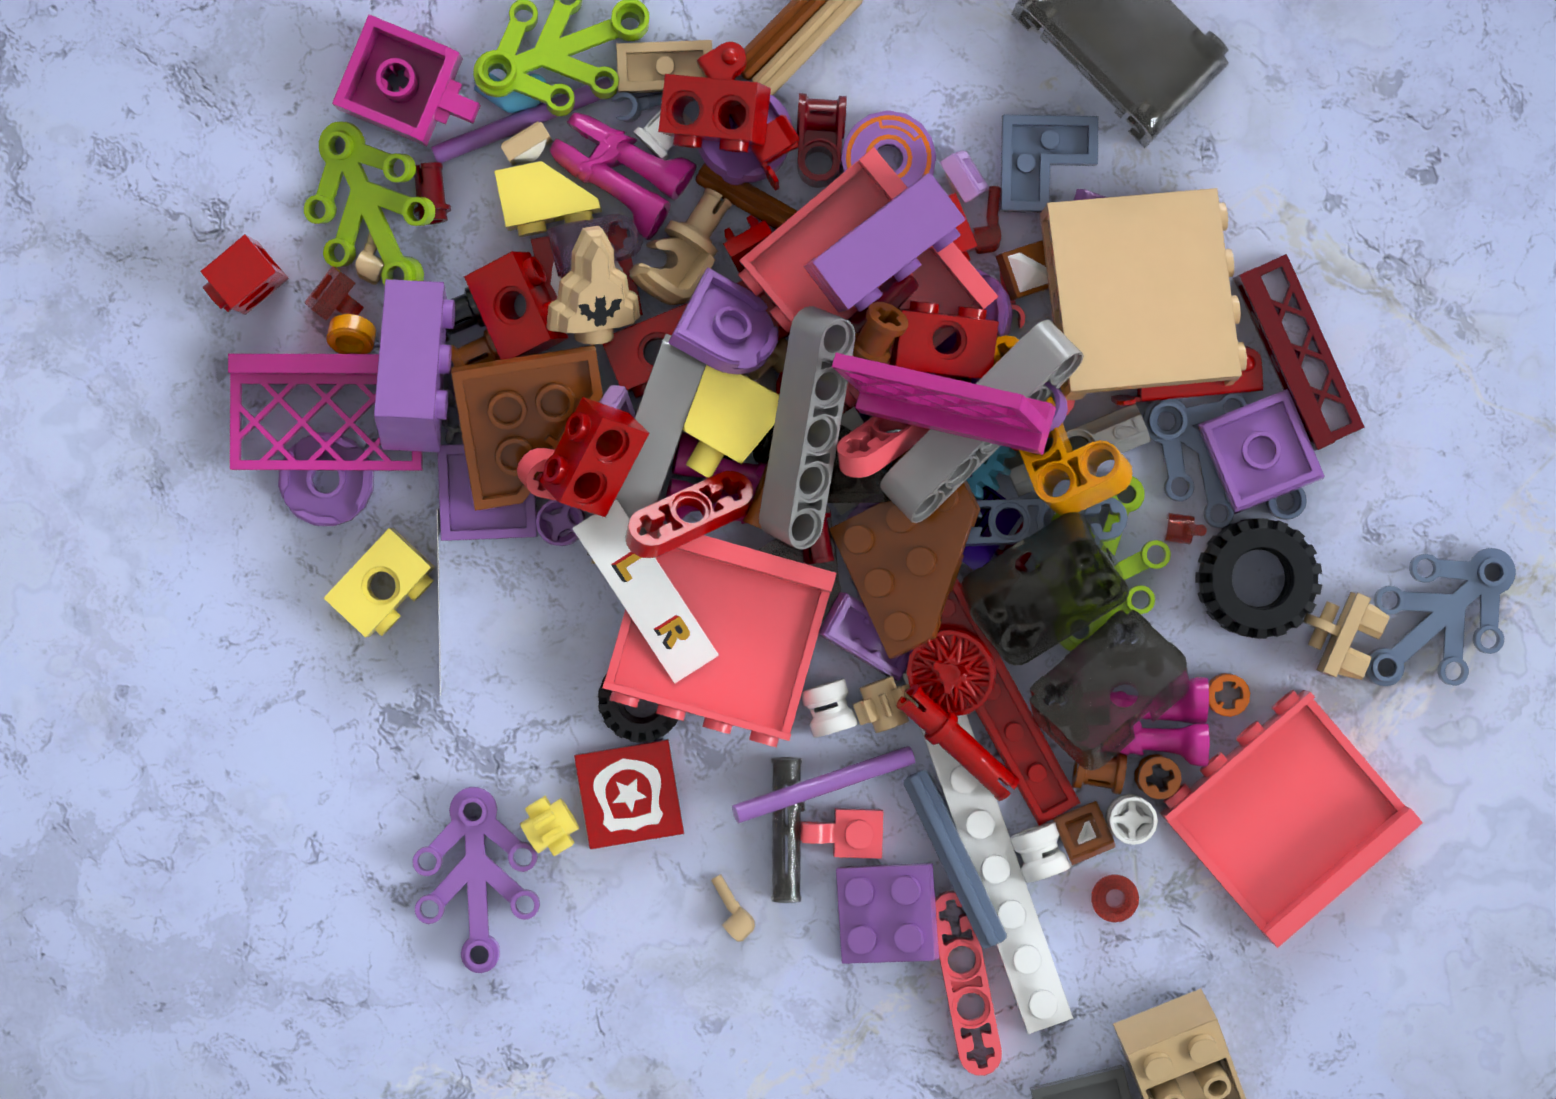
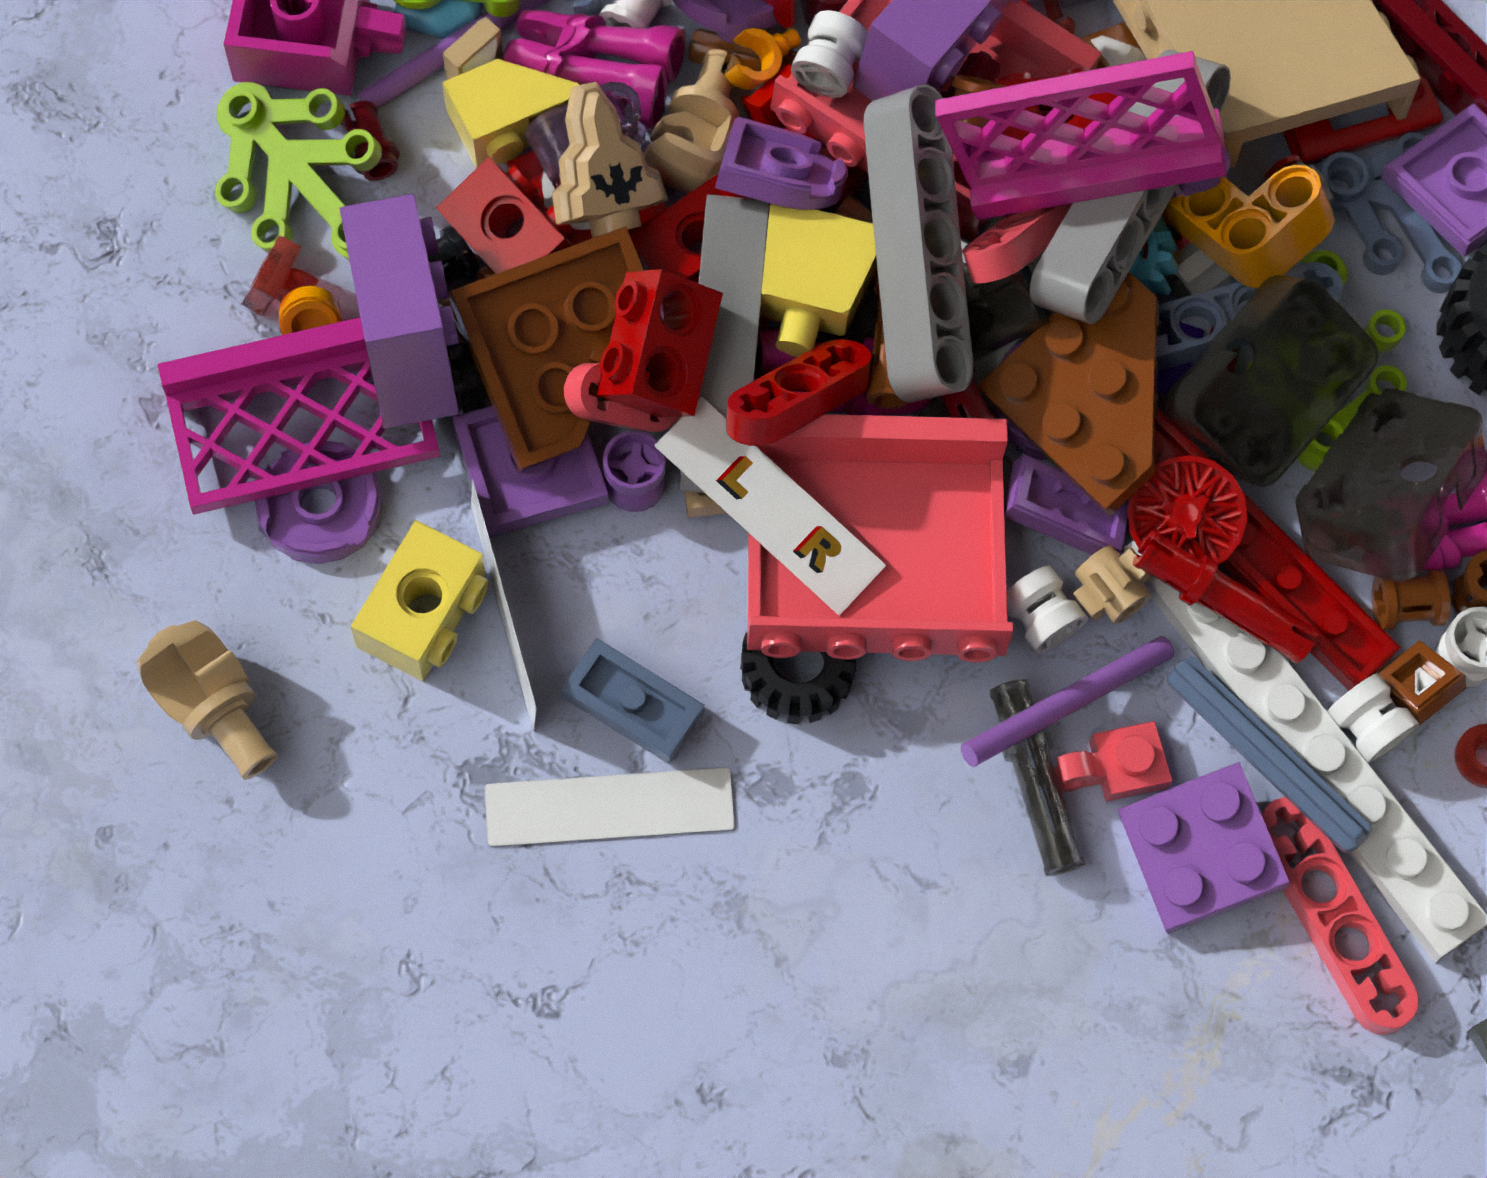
camera: 20 degrees left, 20 degrees down
(214, 612) = (206, 692): none -> tan piece
(242, 276) = (157, 269): red brick -> none
(367, 264) = (313, 239): tan hand -> none
(476, 871) = (643, 937): medium lavender plant -> none
(479, 764) = (609, 806): none -> white sticker
(514, 697) = (632, 700): none -> sand blue plate
(549, 826) = (725, 847): light yellow gear -> none
(629, 794) = (817, 788): red tile -> none
(740, 923) = (1014, 912): tan hand -> none
(755, 205) = (770, 51): none -> light orange piece
(781, 253) = (829, 57): none -> white wheel
(1183, 528) = (1406, 295): clear red hand -> none

